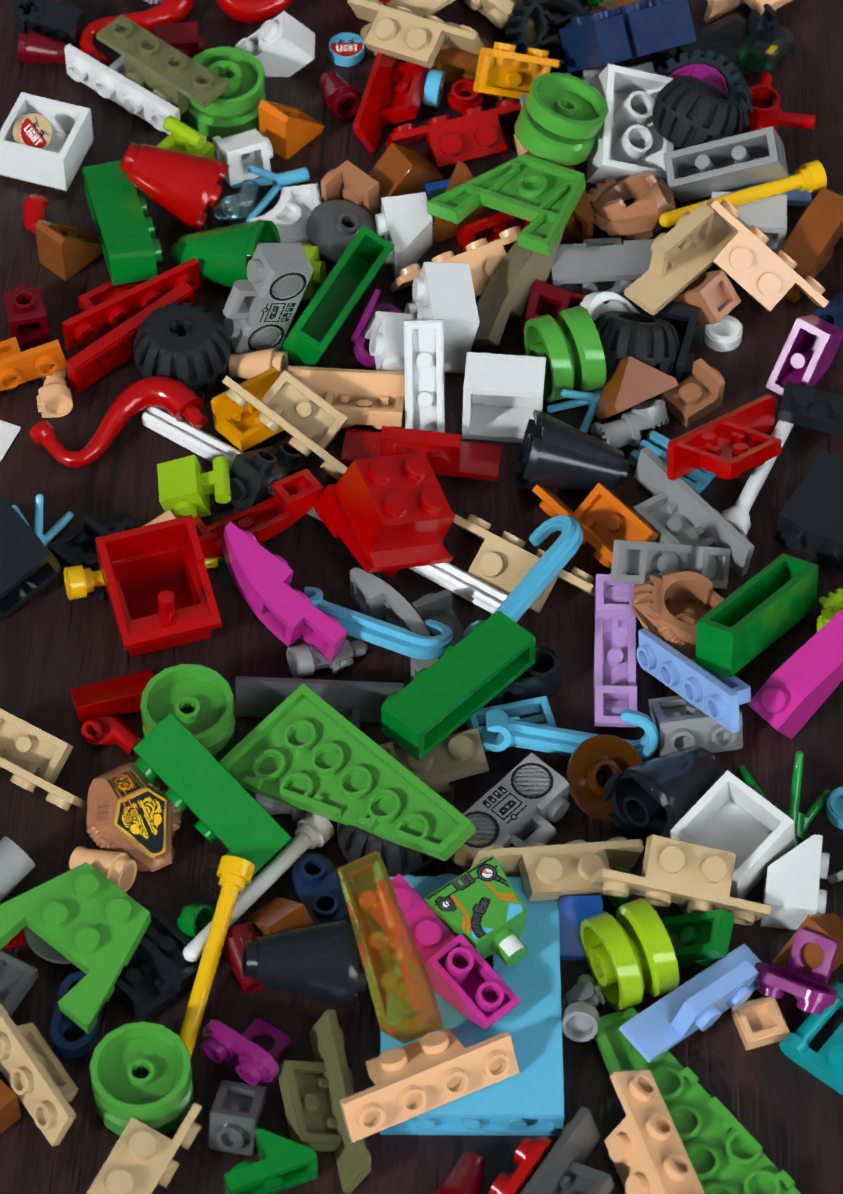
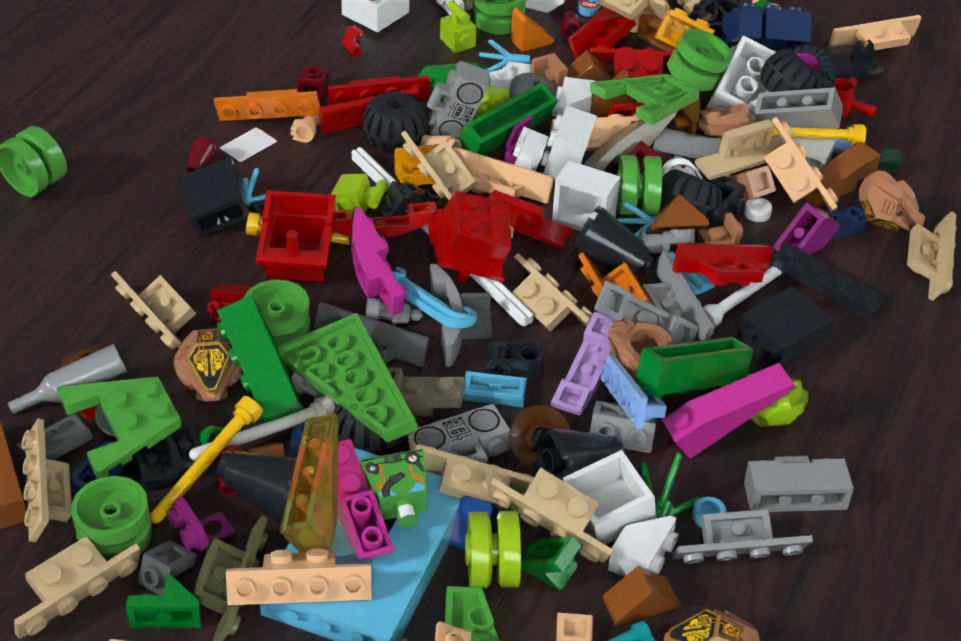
camera: 20 degrees right, 10 degrees down
(65, 248) = (357, 57): dark orange slope -> none
(111, 864) = (178, 389): light nougat cone -> none
(121, 224) = (396, 49): green brick -> none
(144, 393) = (356, 137): red animal -> none
(175, 180) = (440, 34): red cone -> none
(238, 205) = (486, 60): clear light blue arm -> none
(242, 151) = (483, 36): white brick -> none
(424, 374) = (539, 168): white tile -> none
(433, 87) = (632, 35): medium azure tile -> none
(457, 684) = (461, 344): green brick -> none
(462, 97) = (649, 42): red plate -> none
(506, 732) = (516, 403): medium azure piece -> none
(545, 569) = (574, 288): medium azure piece -> none
(580, 1015) = (439, 579): light grey piece -> none
(694, 1004) = (528, 599): light blue bracket -> none
(758, 54) = (853, 68): clear green slope -> none
(810, 990) = (617, 619): magenta bracket -> none

